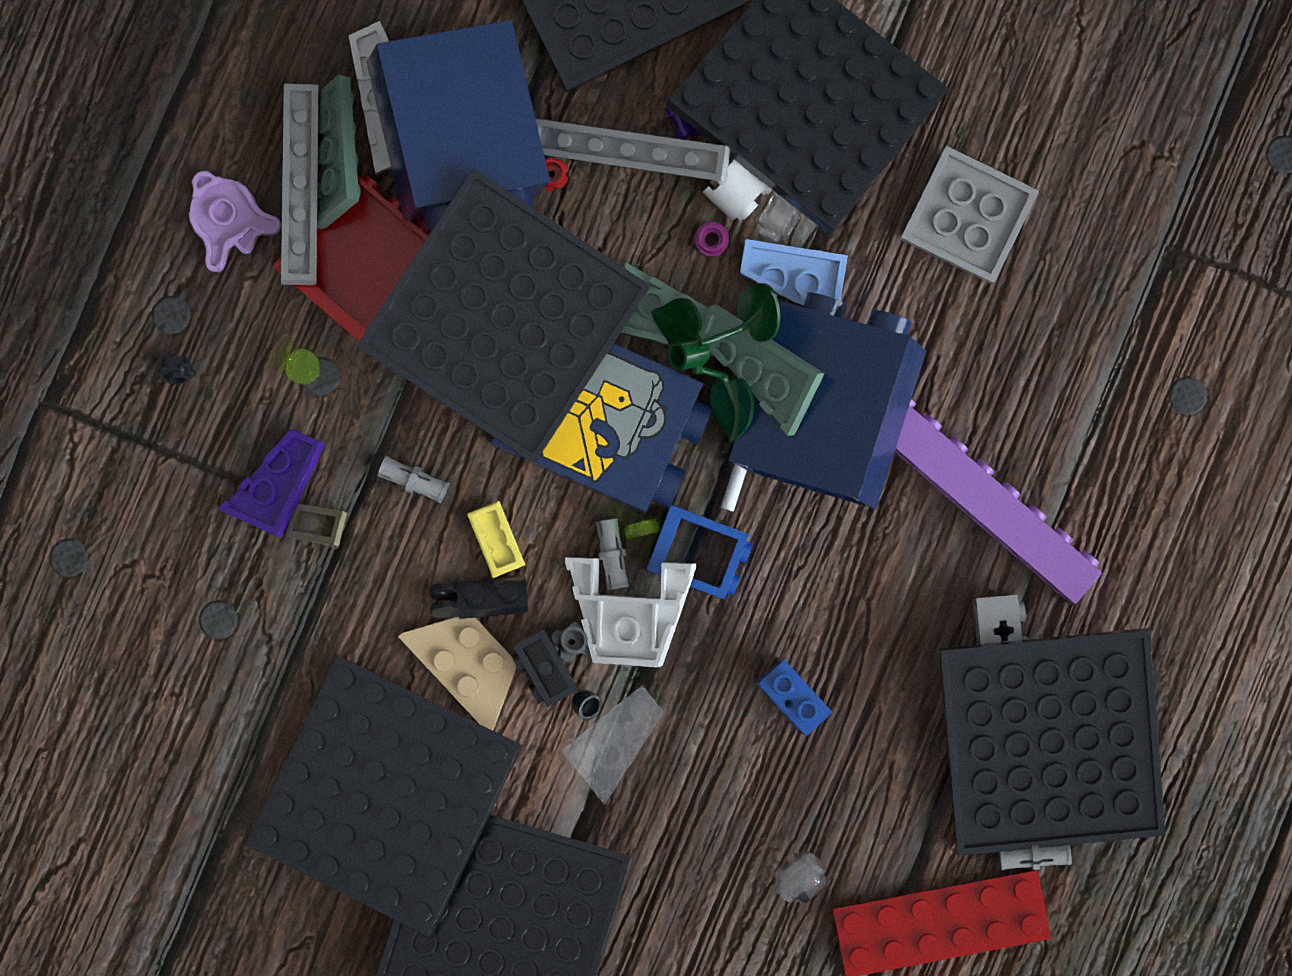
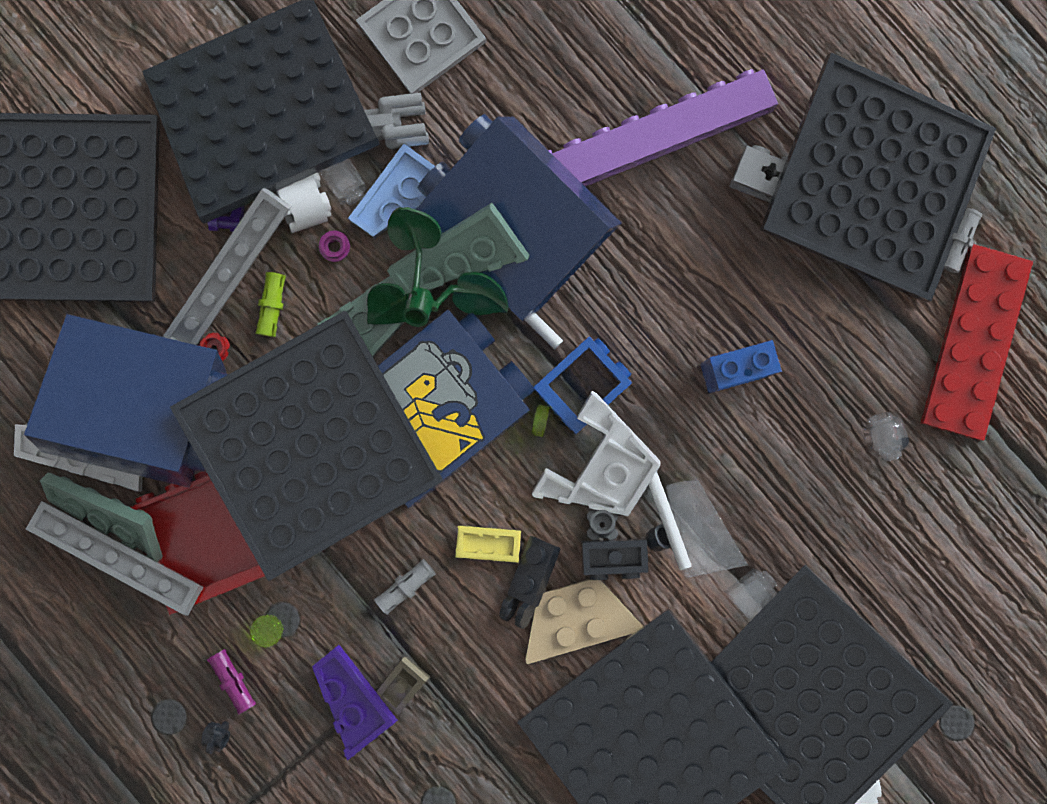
camera: 60 degrees left, 0 degrees up
(227, 217) = (111, 631): lavender tile -> none
(236, 358) = (231, 681): none -> magenta pin
(580, 822) = (752, 592): none -> clear brick
(607, 705) = (669, 523): none -> white bar
(612, 554) = (548, 455): light grey pin -> none
(622, 206) = (270, 304): none -> lime pin
(858, 229) = (387, 120): none -> light grey plant

